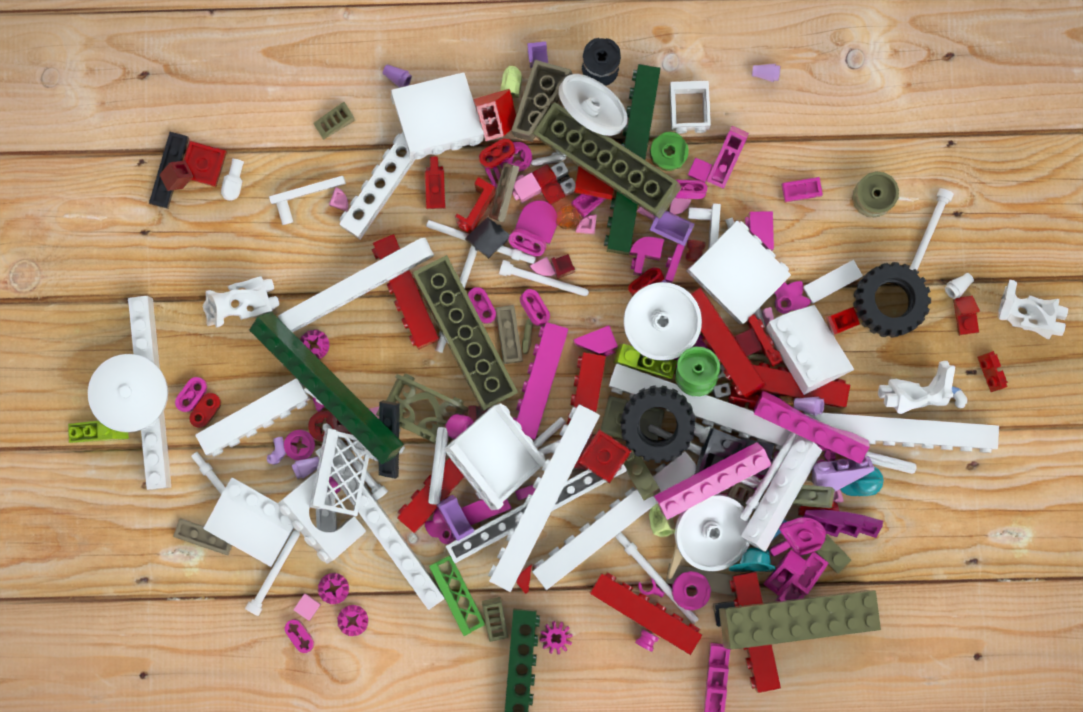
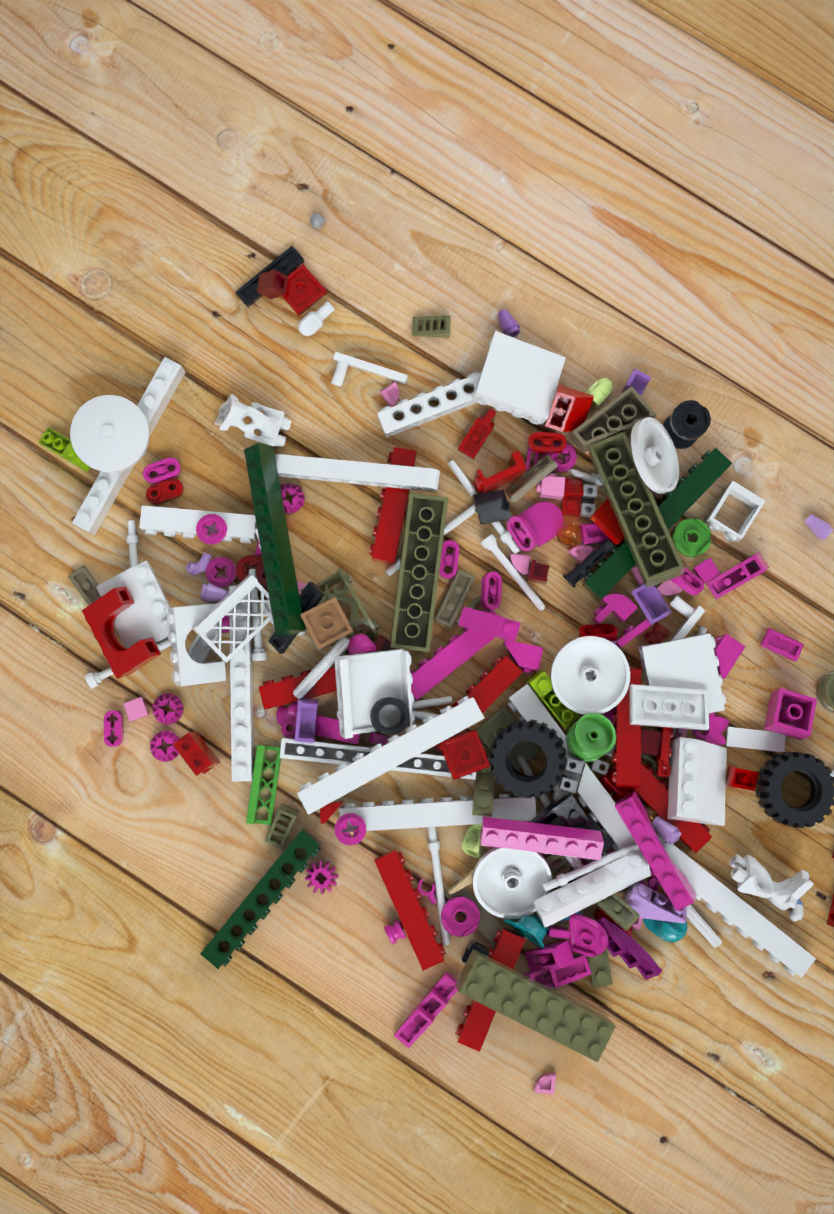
camera: 30 degrees right, 0 degrees up
(176, 96) = (317, 221): none -> light grey hinge
(226, 551) = (101, 619): none -> red arch
(260, 409) = (209, 520): none -> dark pink gear
(383, 607) = (196, 753): none -> red panel
(417, 426) = (326, 623): none -> medium nougat plate
(535, 462) = (374, 716): none -> black tyre
(552, 336) = (489, 624): none -> dark pink slope
(552, 591) = (342, 824): none -> dark pink gear
(596, 239) = (581, 569): none -> black pin
(710, 419) = (573, 785): none -> flat silver piece
(743, 303) = (669, 707): none -> white tile
(846, 241) = (790, 714): none -> dark pink brick
(852, 678) = (545, 1084): none -> bright pink tile

